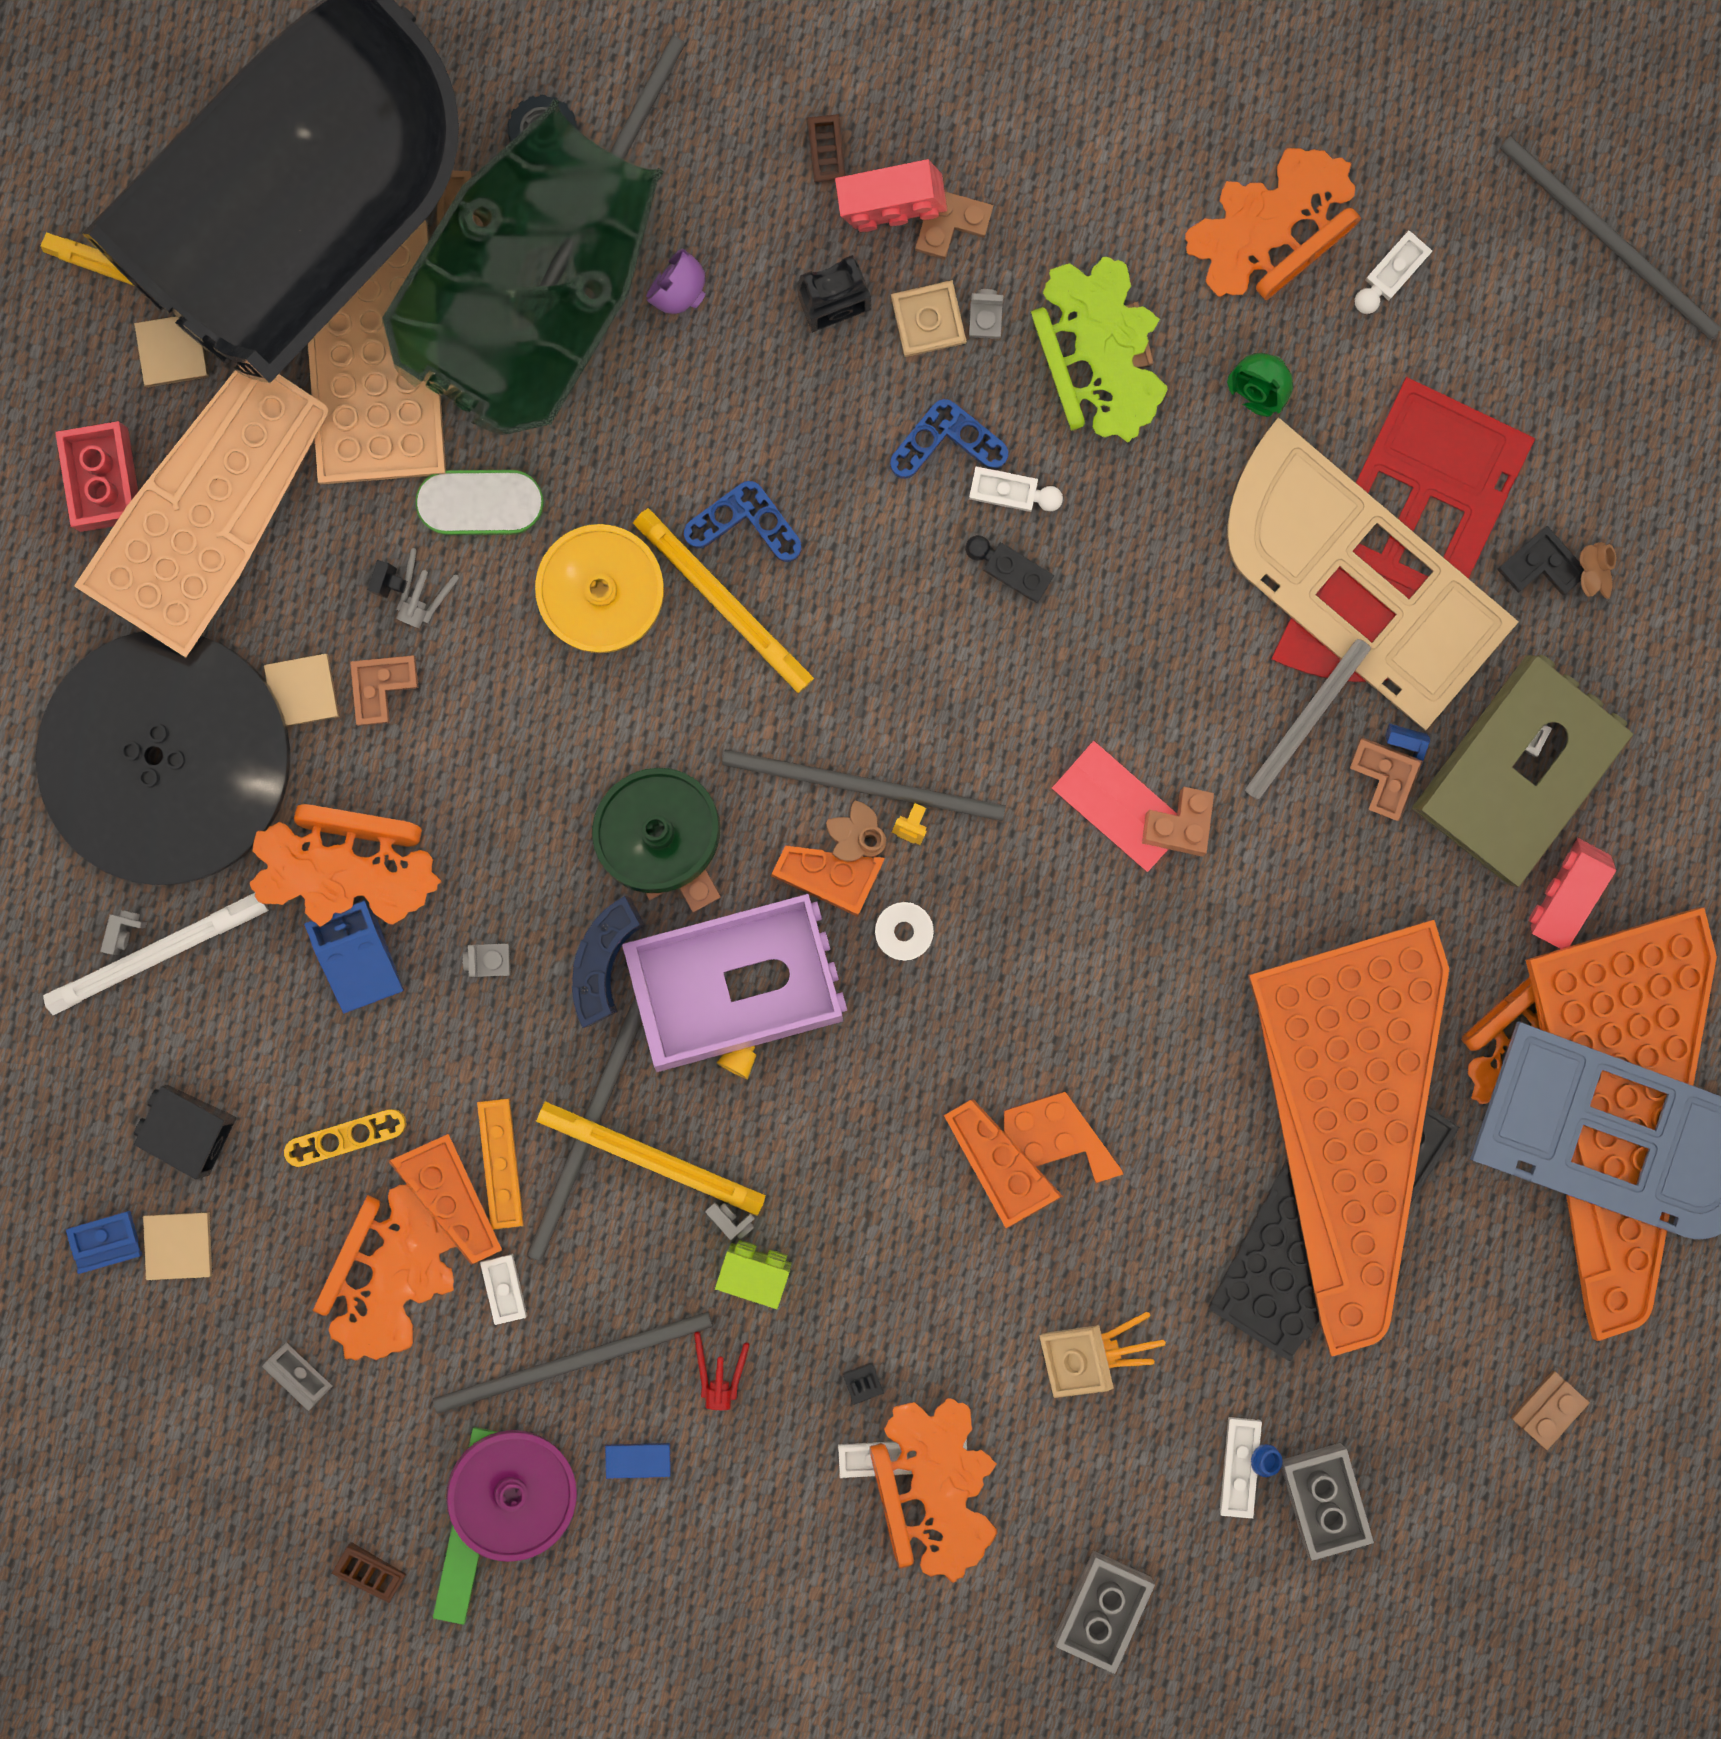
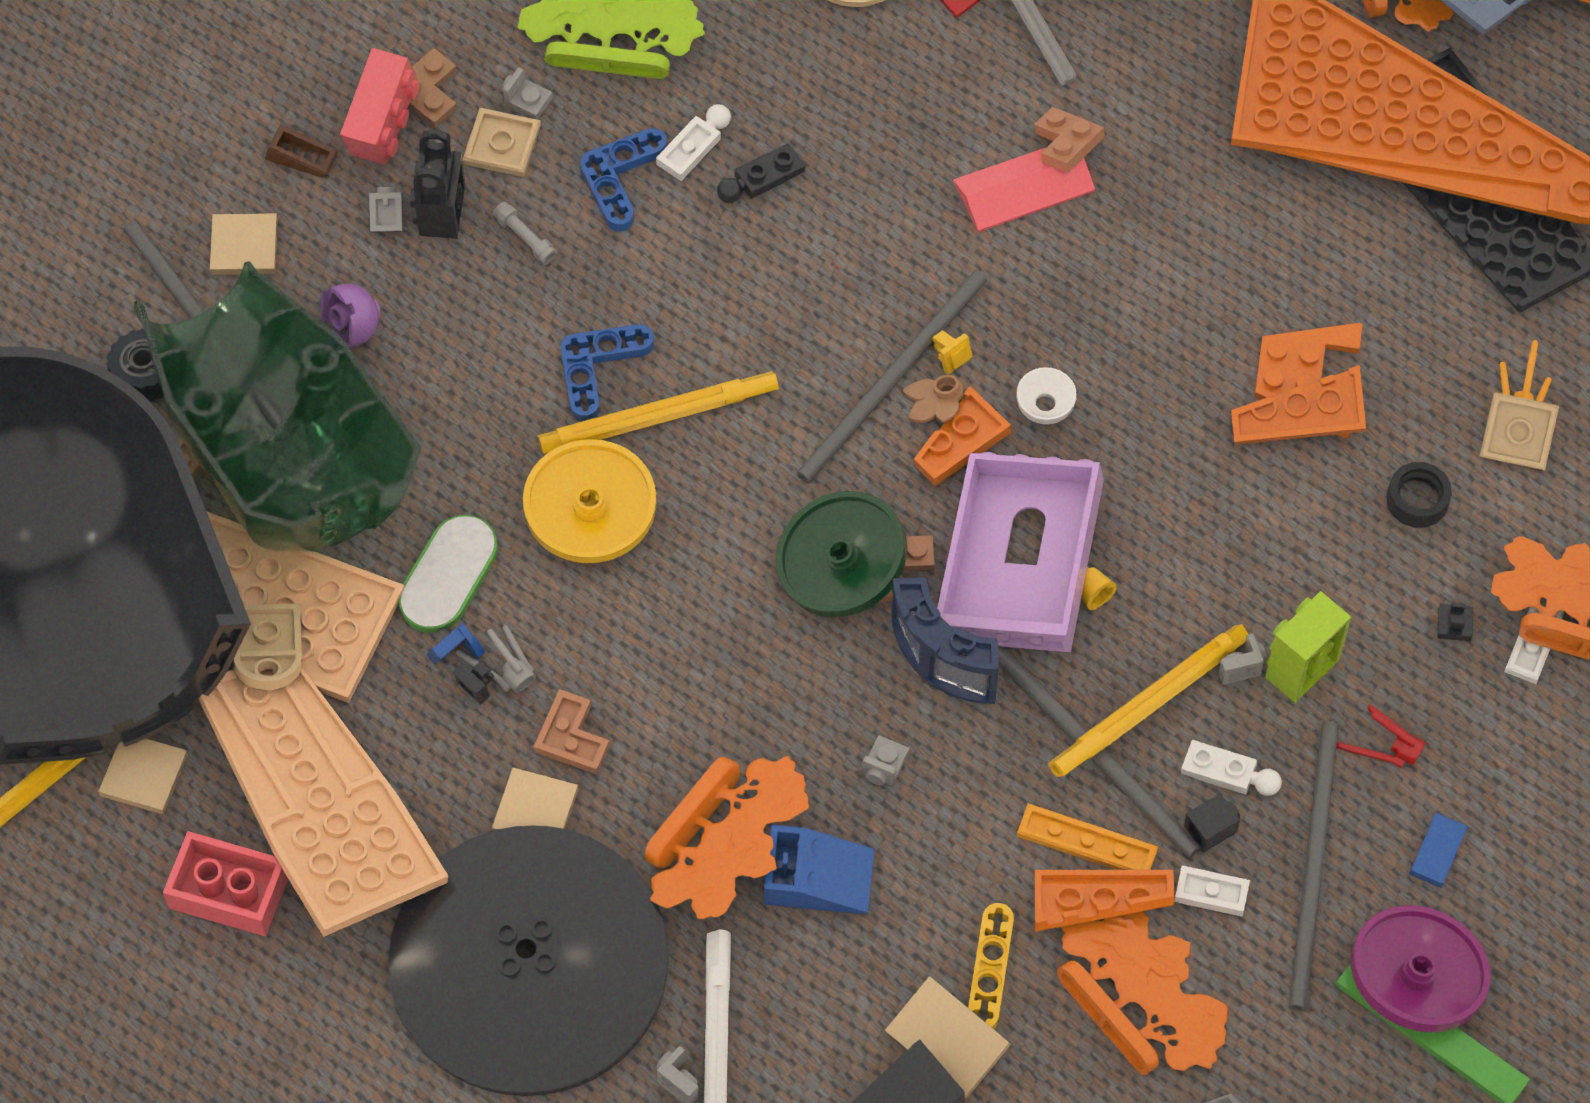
camera: 65 degrees left, 25 degrees down
(263, 1133) = (951, 1033): none -> tan tile
(323, 389) = (270, 644): none -> tan tile
(413, 542) = (460, 635): none -> blue tile
(565, 1262) = (1212, 822): none -> black brick
(624, 1253) = (1228, 770): none -> white plate
(709, 149) = (243, 239): none -> tan tile
(803, 255) = (386, 210): none -> light grey bracket
(853, 364) = (542, 249): none -> light grey bar
(982, 1321) = (1412, 516): none -> black tyre

